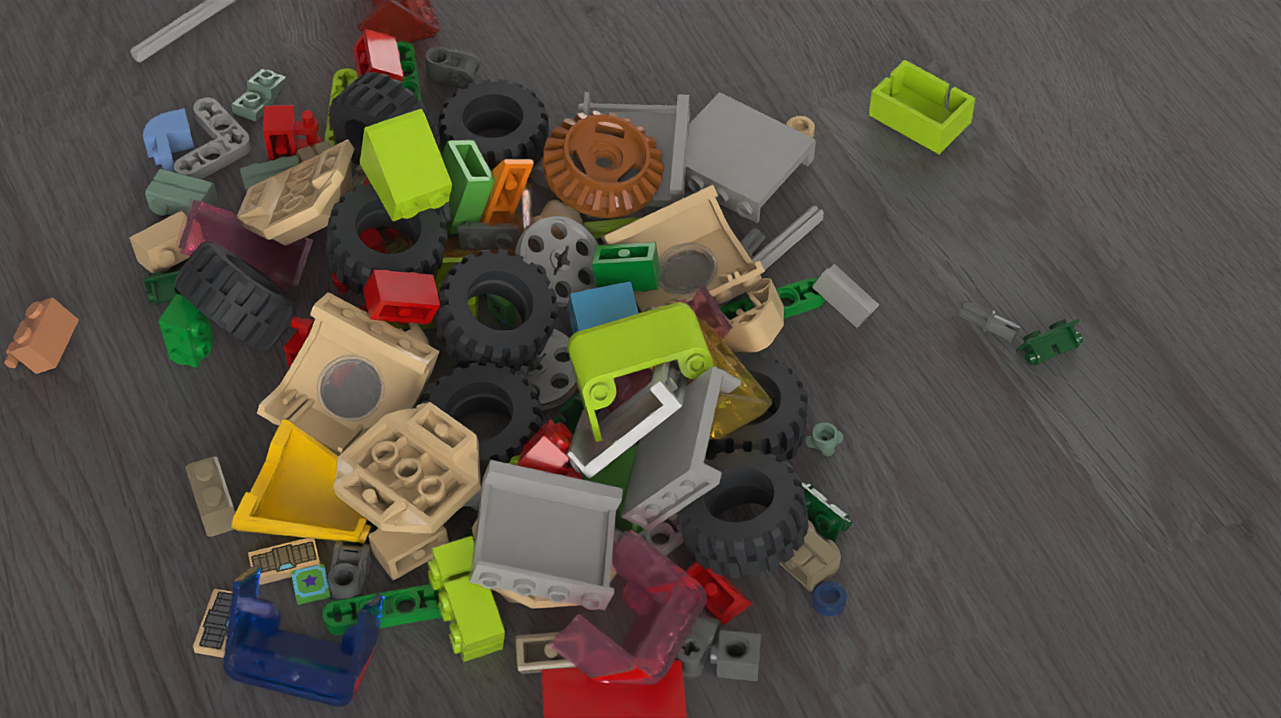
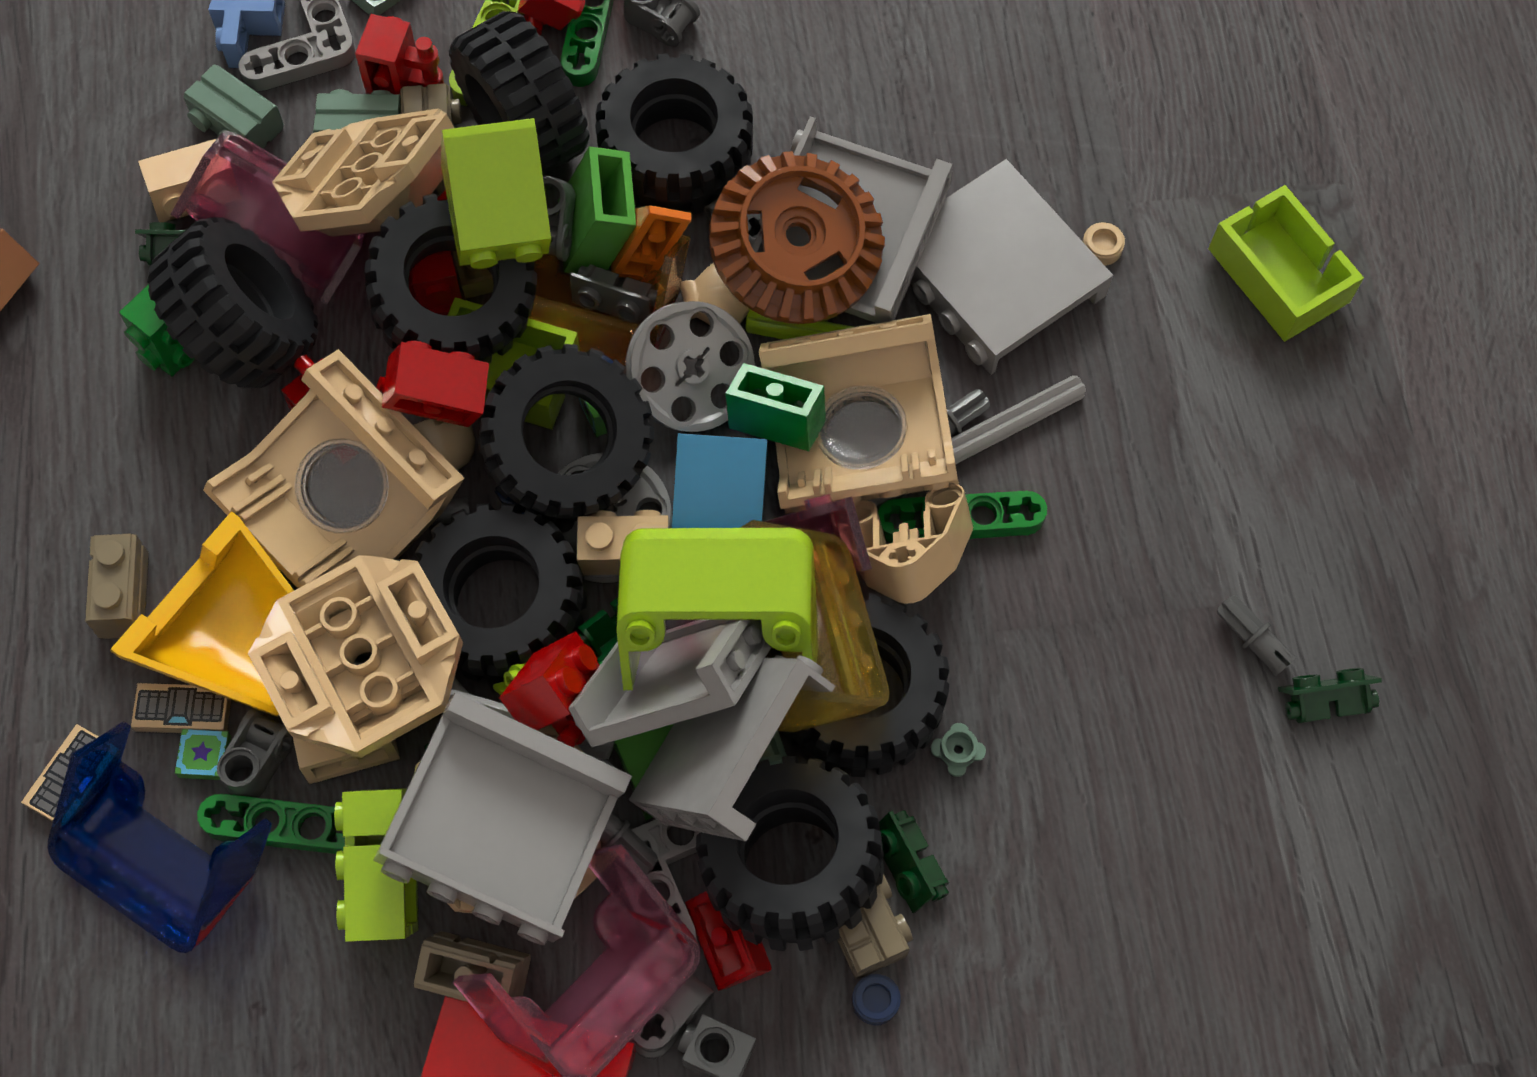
camera: 15 degrees right, 15 degrees up
(551, 374) = (602, 538): none -> tan brick
(845, 295) = (1068, 535): light grey panel -> none

